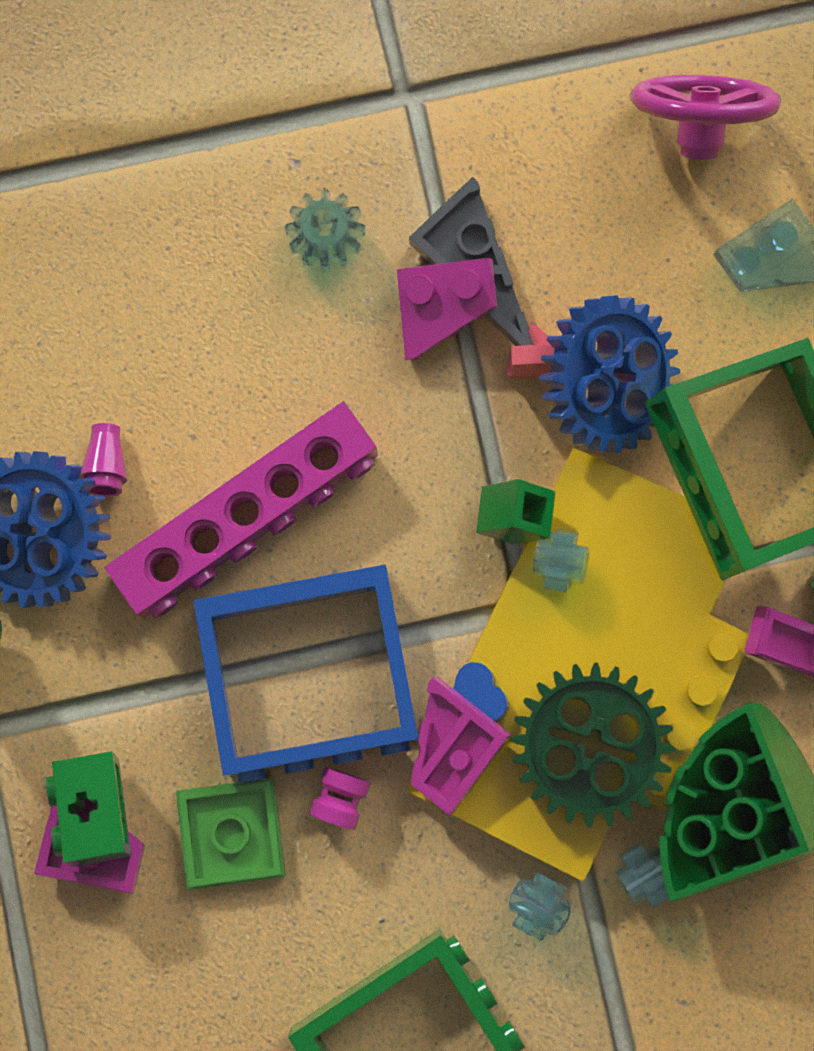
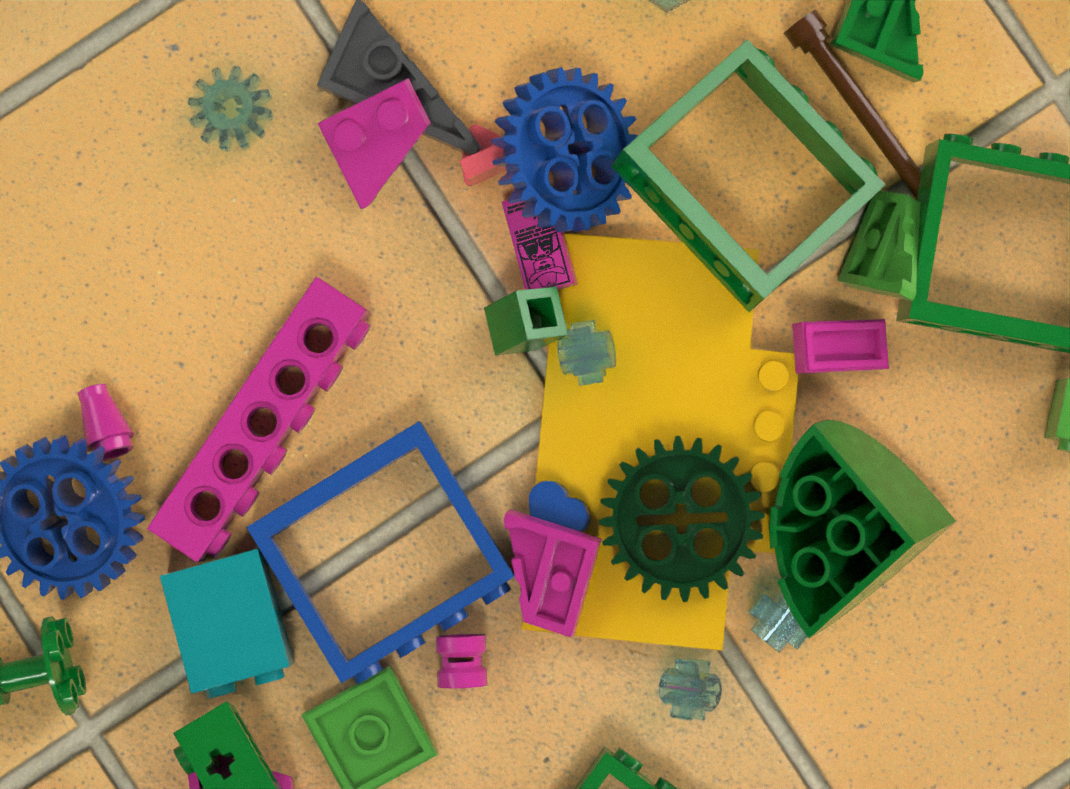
camera: 20 degrees left, 5 degrees up
(142, 681) = (228, 623): none -> teal brick
(550, 453) = (539, 251): none -> dark pink tile

